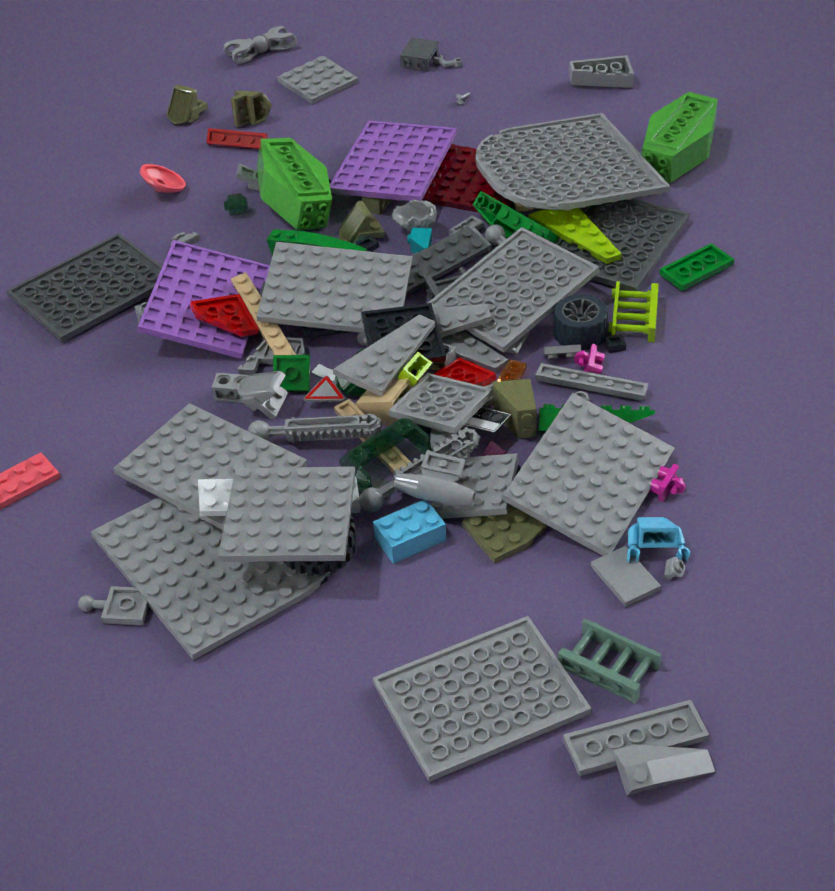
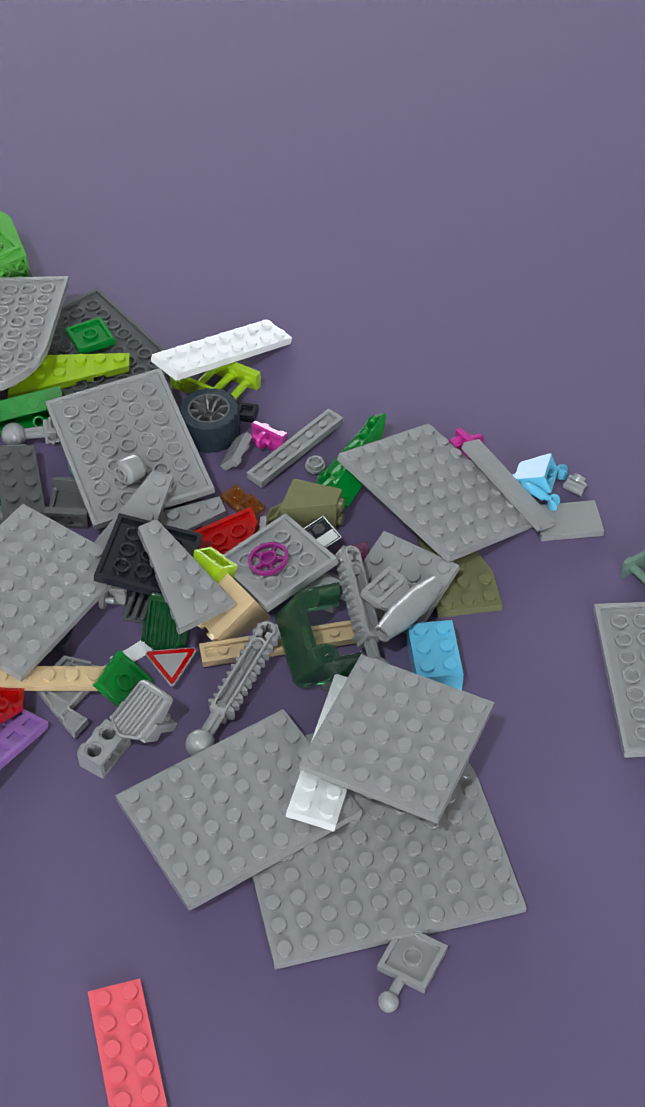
camera: 70 degrees left, 5 degrees up
(435, 394) = (268, 559): none -> magenta wheel
(482, 293) = (130, 469): none -> light grey head
(624, 228) = (90, 336): none -> green plate
(626, 515) = (508, 485): none -> light grey tile
(661, 297) = (220, 349): none -> white plate
(696, 266) = (179, 315): green plate -> none

